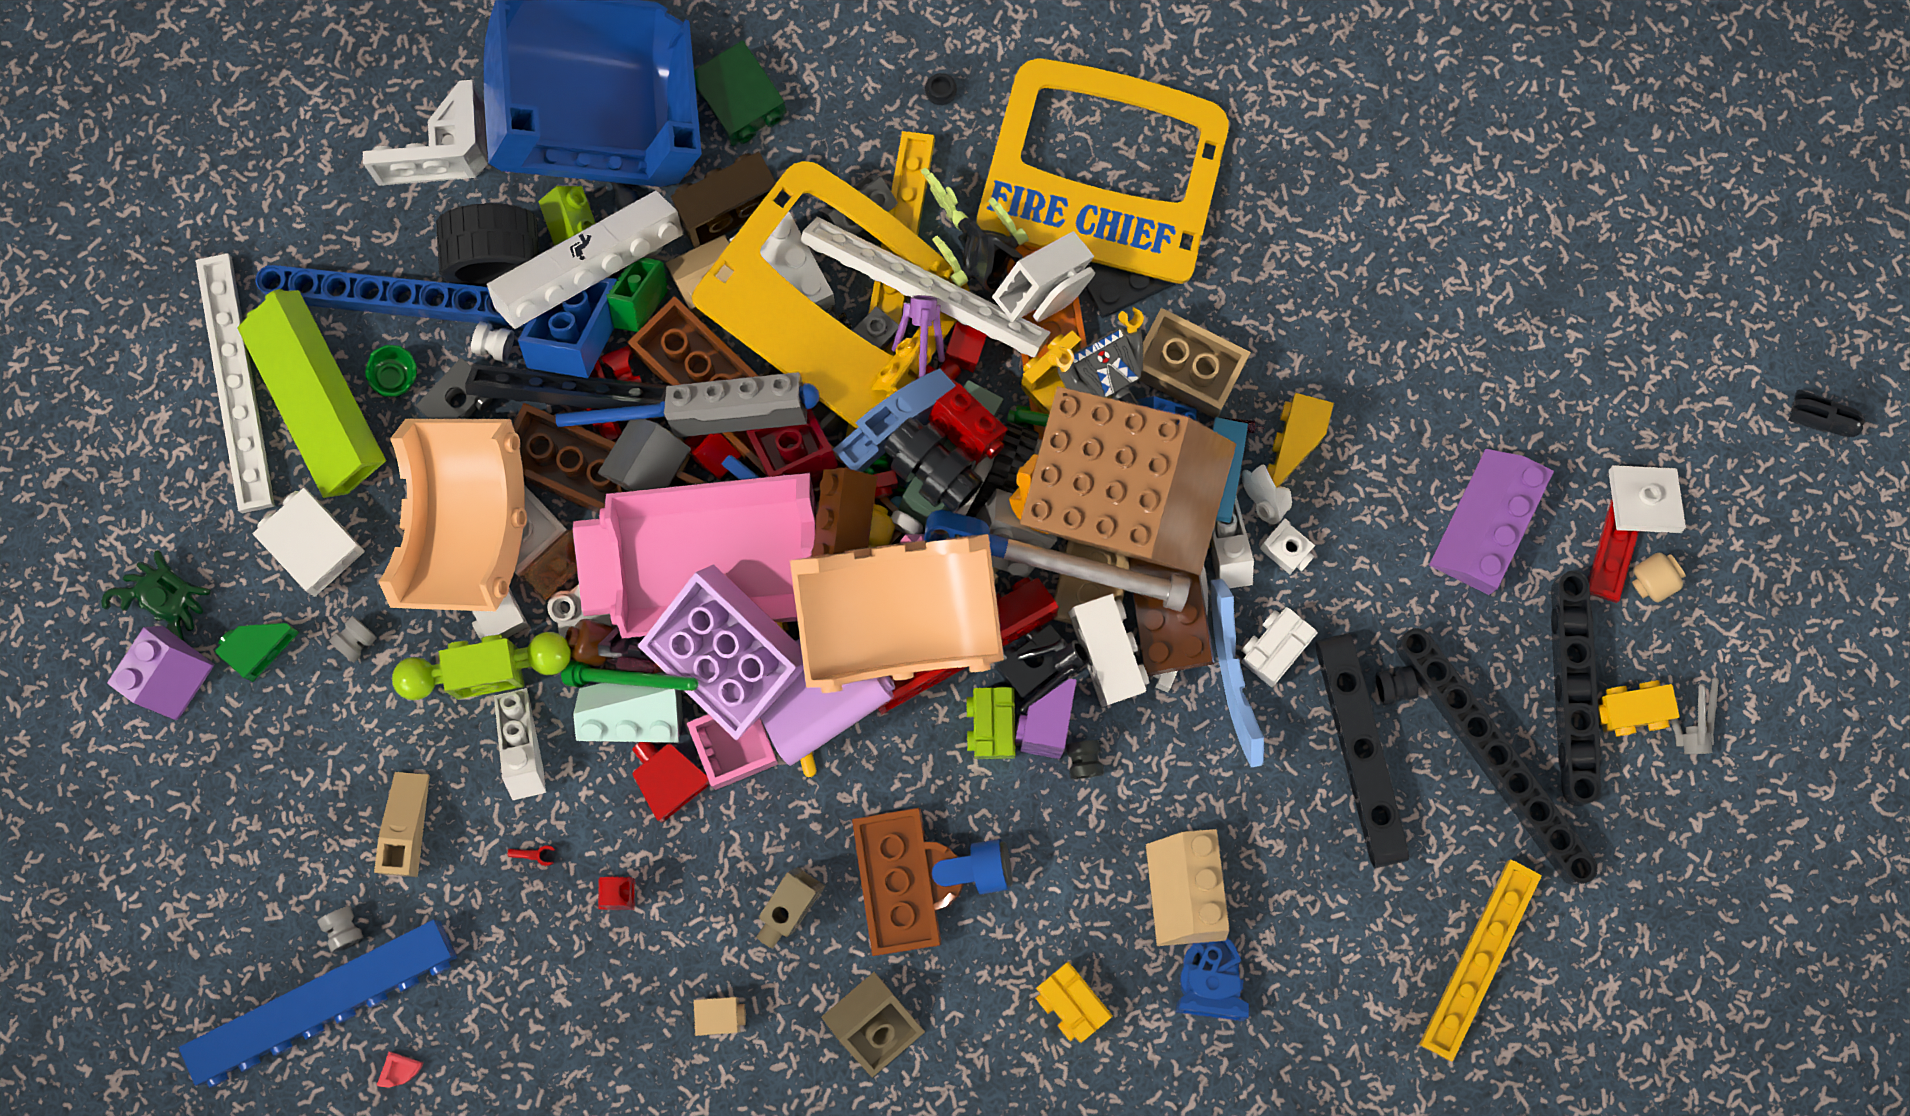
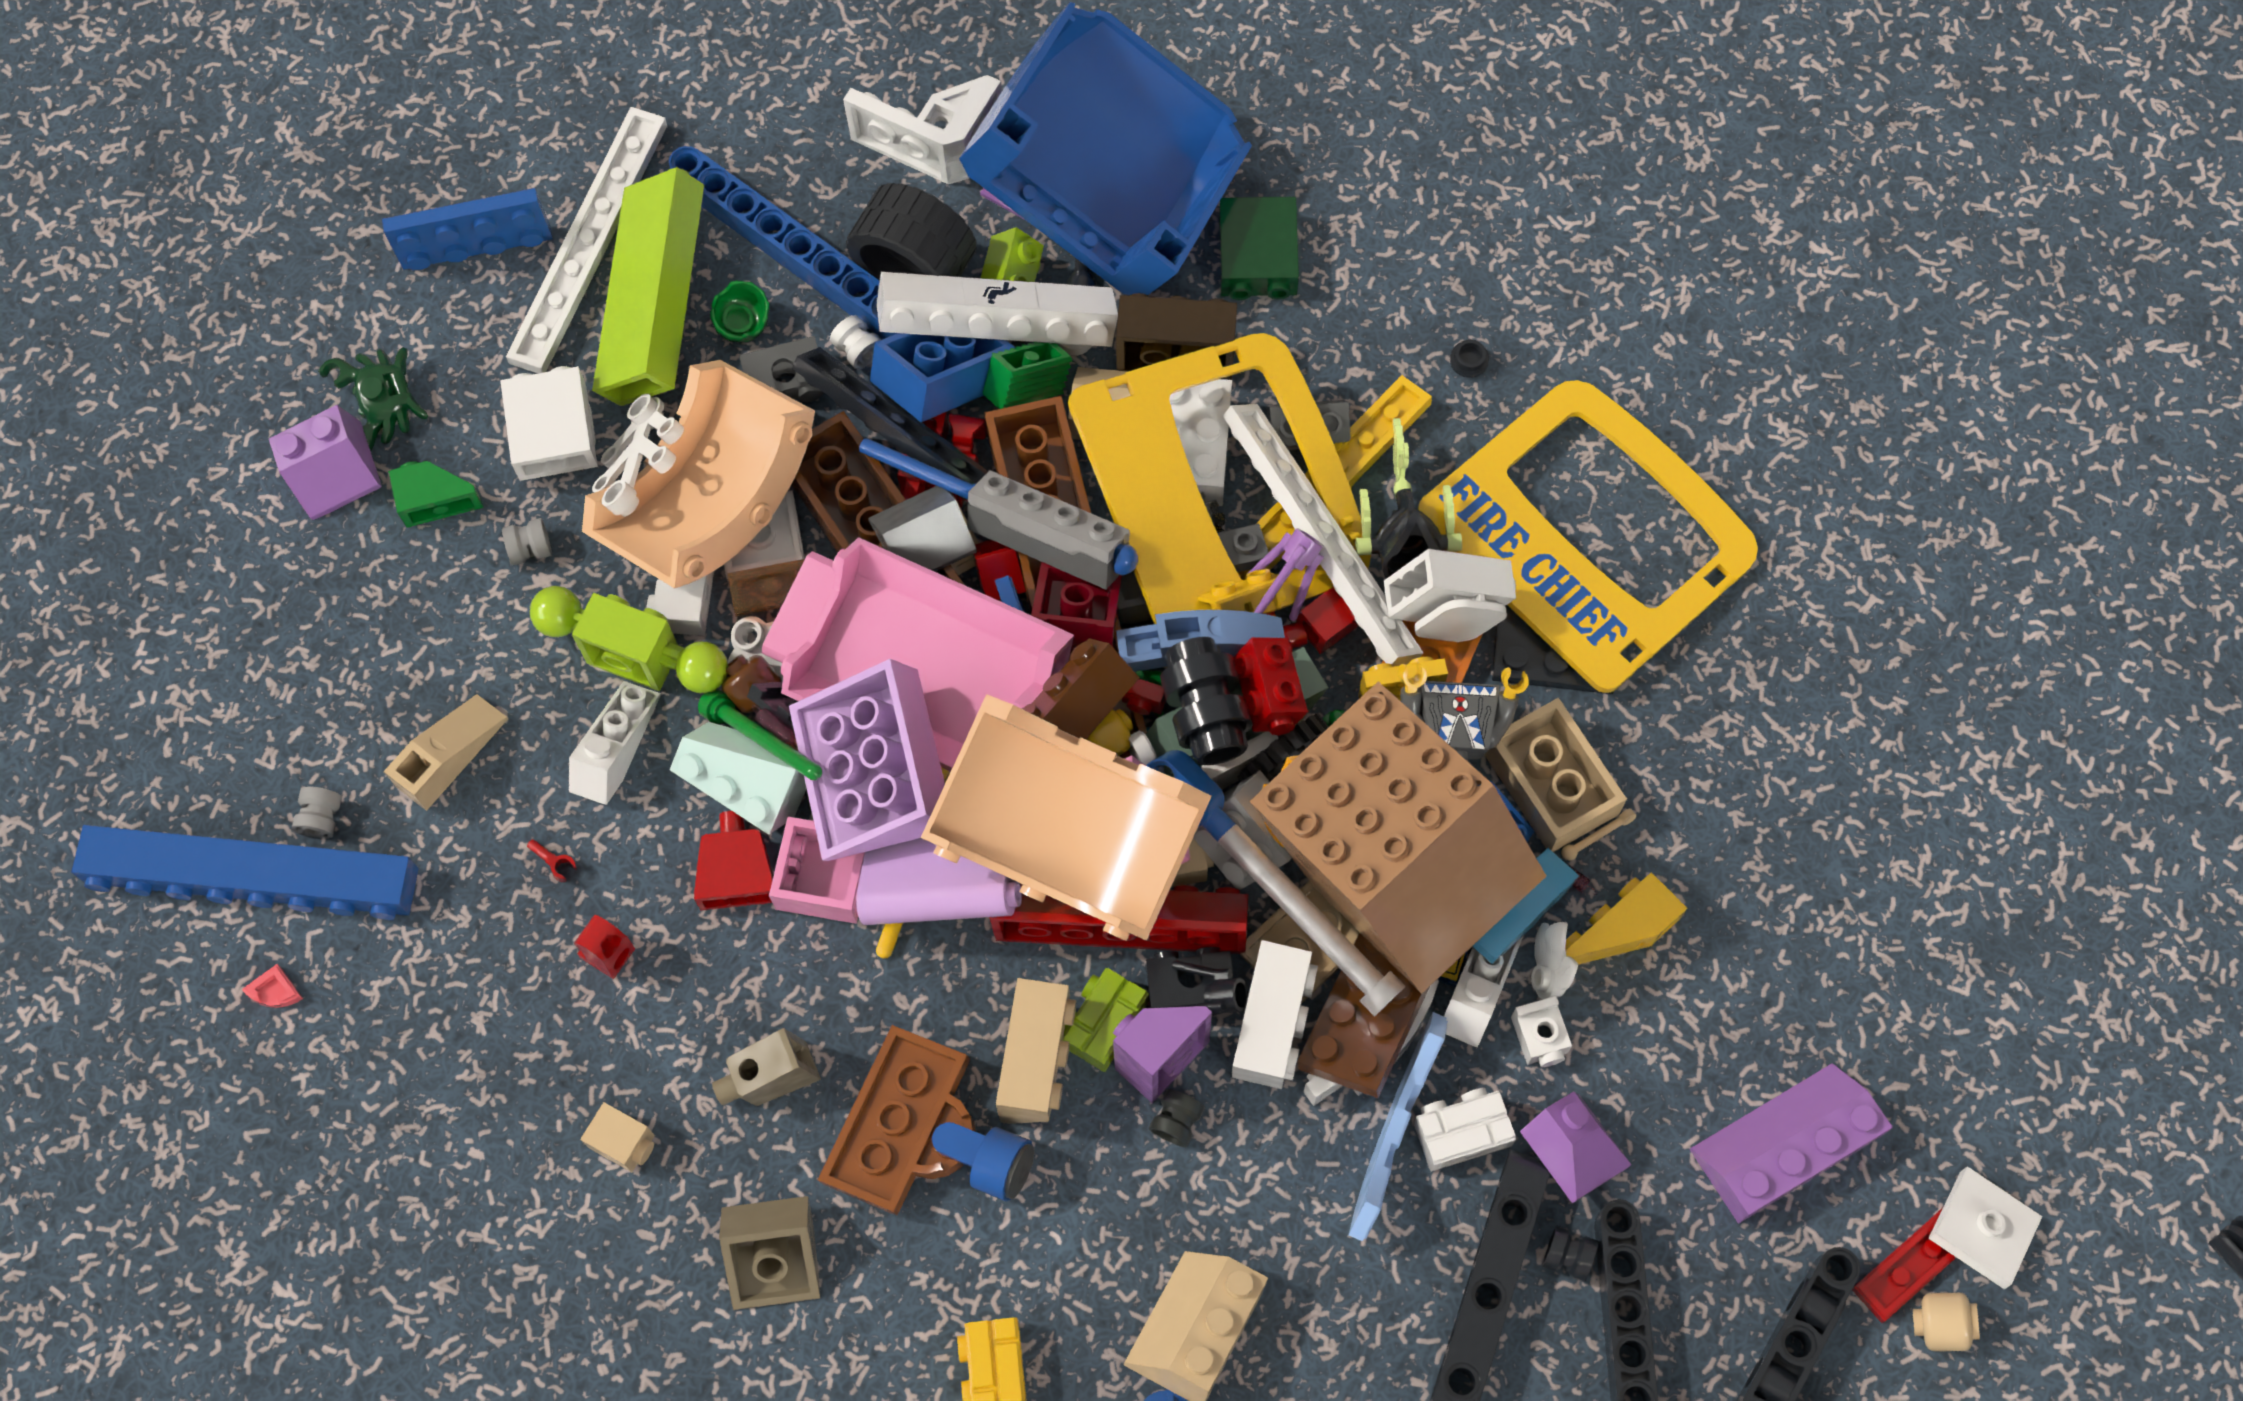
camera: 35 degrees right, 10 degrees down
(141, 431) = (468, 229): none -> blue plate
(375, 492) = (644, 415): none -> white plant
(966, 777) = (1034, 1052): none -> tan slope
(1229, 409) = (1570, 852): none -> tan hinge
(1358, 612) = (1574, 1146): none -> medium lavender slope

